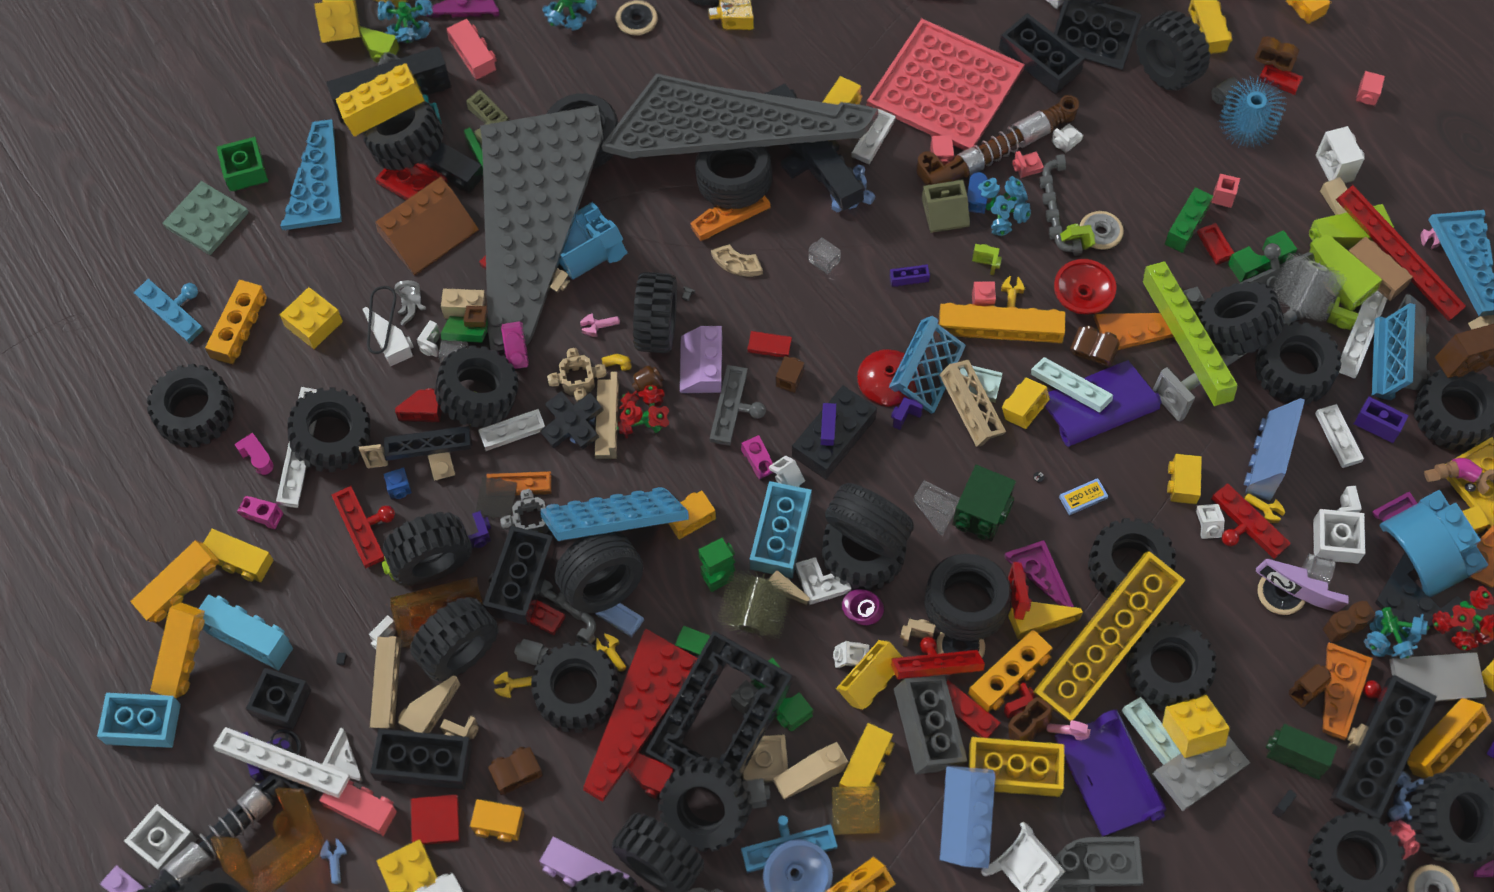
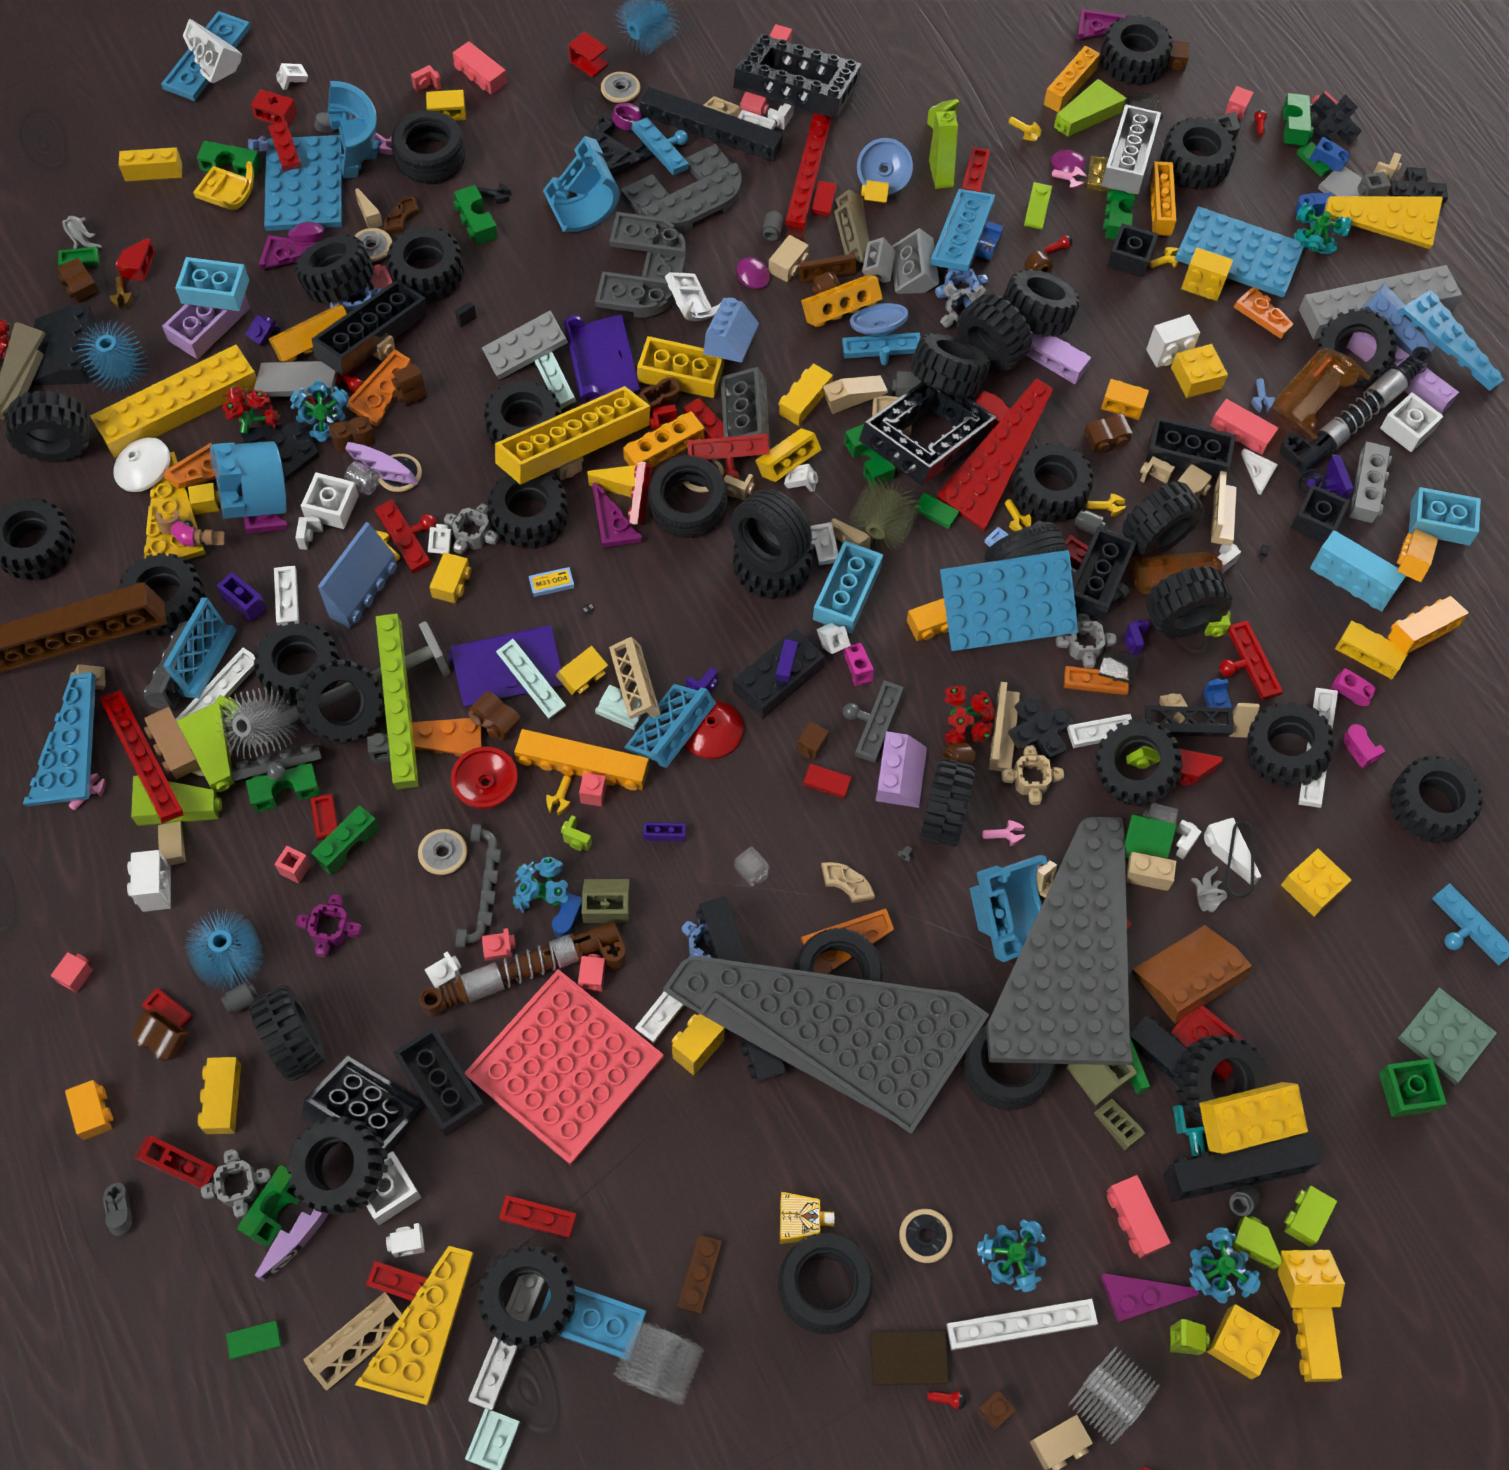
camera: 175 degrees left, 0 degrees up
(215, 791) = (1369, 482): none -> light grey brick
(235, 311) = (1413, 866): light orange brick -> none
(282, 762) = (1314, 453): white plate -> none
(316, 184) = (1322, 1051): dark azure wing -> none
(334, 65) = (1309, 1215): none -> lime brick
(435, 819) = (1178, 407): red tile -> none
(475, 316) = (1138, 841): reddish brown plate -> none
(515, 344) = (1097, 805): dark pink brick -> none
(619, 359) = (987, 788): yellow arm -> none
(717, 564) = (912, 553): green arch -> none
(855, 810) = (822, 357): clear yellow plate -> none
(936, 505) = (693, 593): clear wing -> none
(984, 503) = (650, 576): dark green brick -> none
(1077, 729) = (619, 381): bright pink bar -> none
(1079, 232) = (472, 837): lime bracket -> none
(1178, 166) = (334, 910): none -> magenta piece
(1185, 521) = (467, 516): none -> light grey piece
(1195, 726) = (521, 362): yellow brick -> none
(1300, 751) = (438, 338): dark green brick -> none

